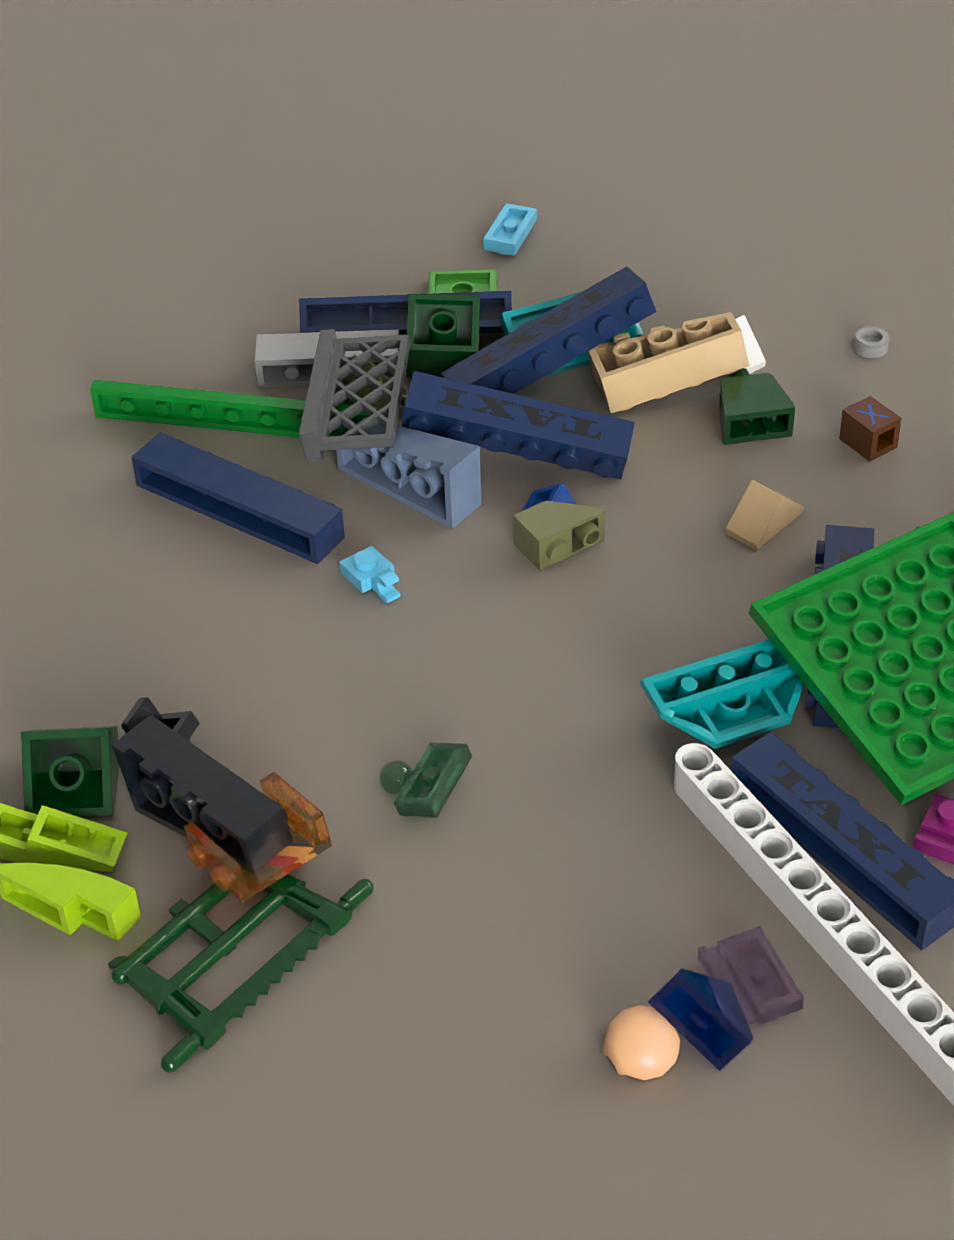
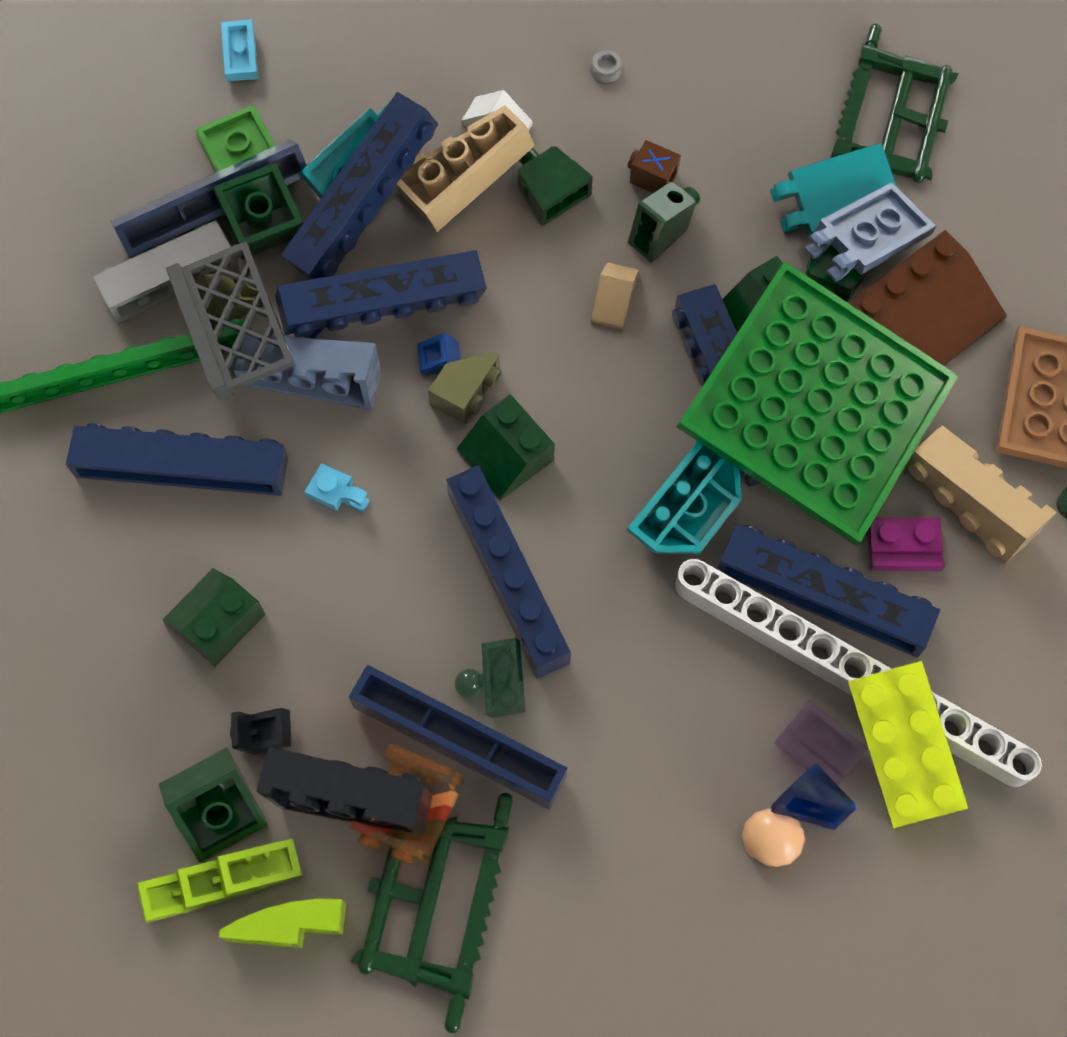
camera: 30 degrees left, 25 degrees up
(186, 630) = (215, 616): none -> dark green slope
(353, 808) = (458, 737): none -> dark blue brick
(497, 696) = (508, 572): none -> dark blue brick
(567, 594) = (507, 447): none -> dark green slope
(850, 464) = (662, 219): none -> dark green torso
(850, 1006) = (907, 744): none -> neon yellow plate

